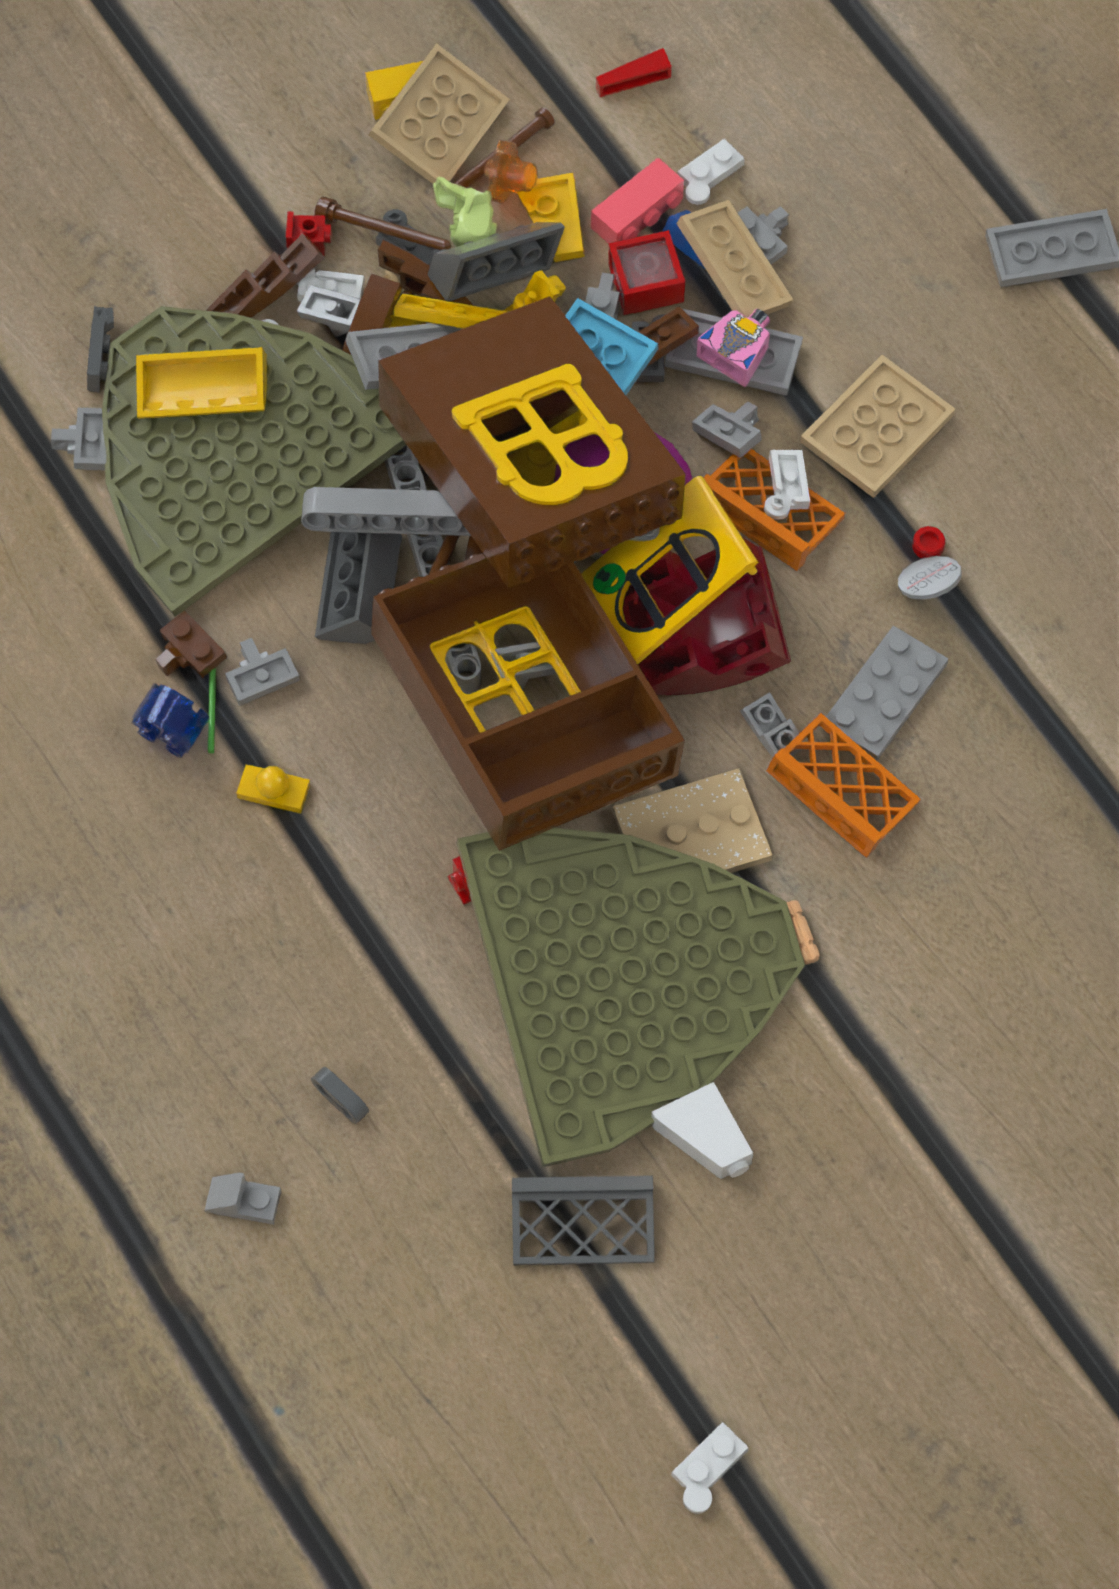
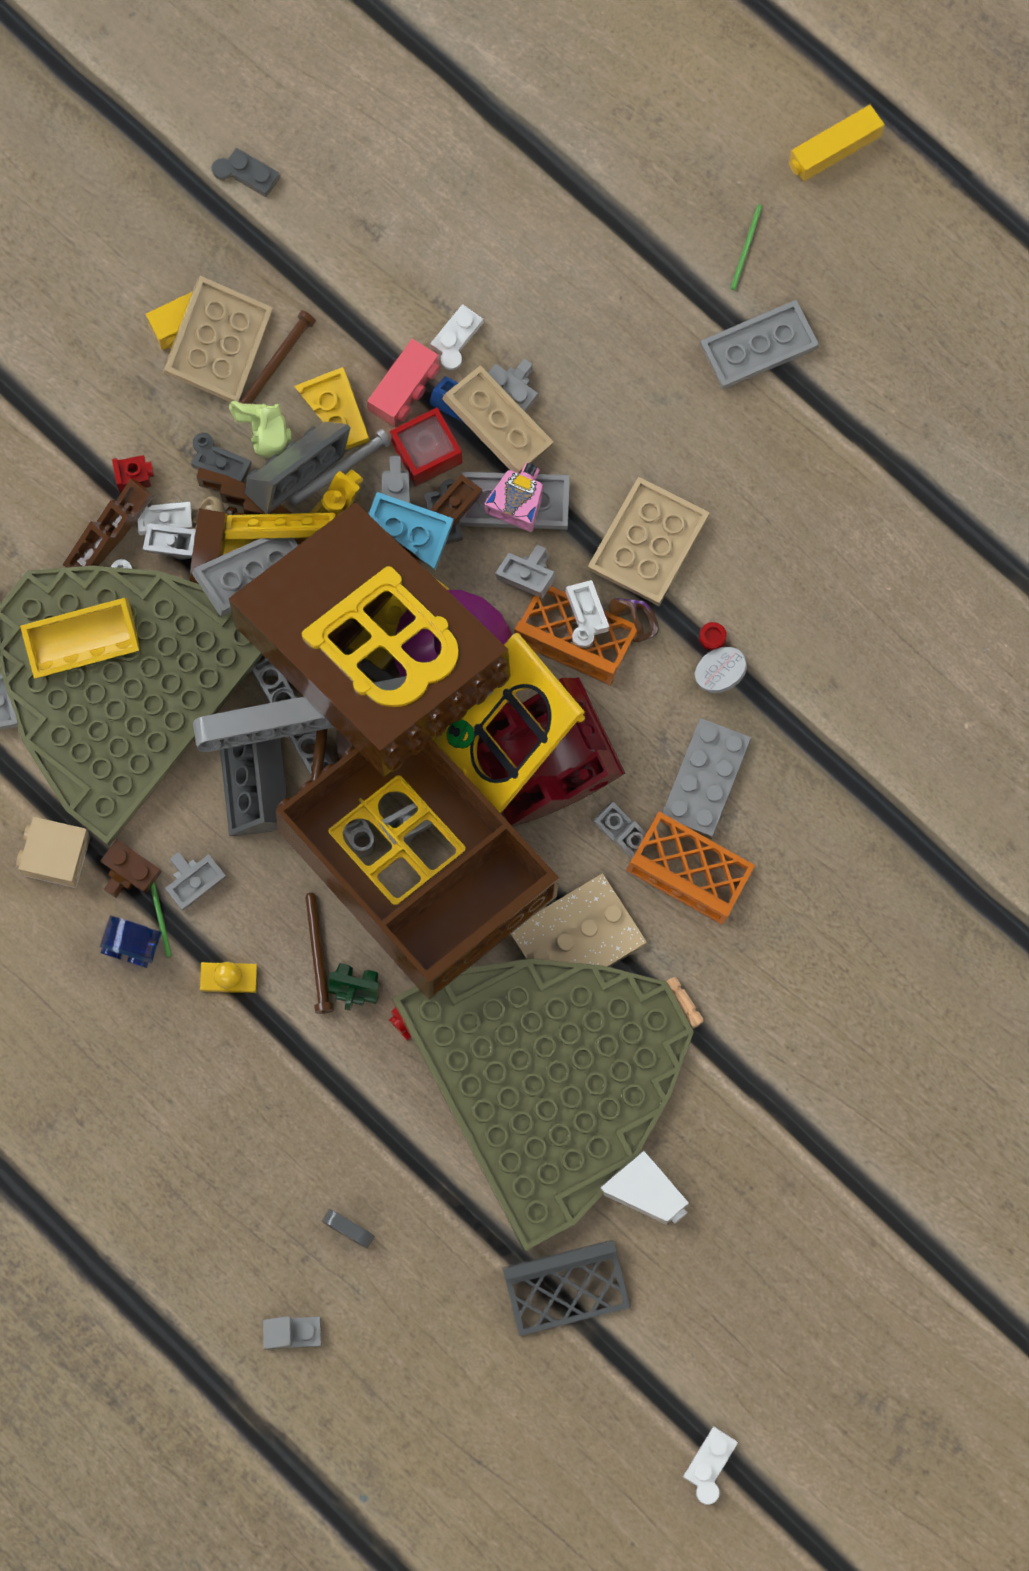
camera: 10 degrees left, 10 degrees up
(108, 608) = (53, 852): none -> tan piece
(334, 212) = (147, 447): reddish brown piece -> none
(376, 843) = (323, 1005): none -> reddish brown bar
(415, 830) = (353, 989): none -> dark green hips
(508, 173) = (290, 381): clear orange plate -> none
(597, 258) = (344, 465): none -> light grey bar
(637, 73) = (376, 257): red piece -> none
(835, 489) = (625, 606): none -> reddish brown piece
(1041, 179) = (746, 247): none -> bright green axle

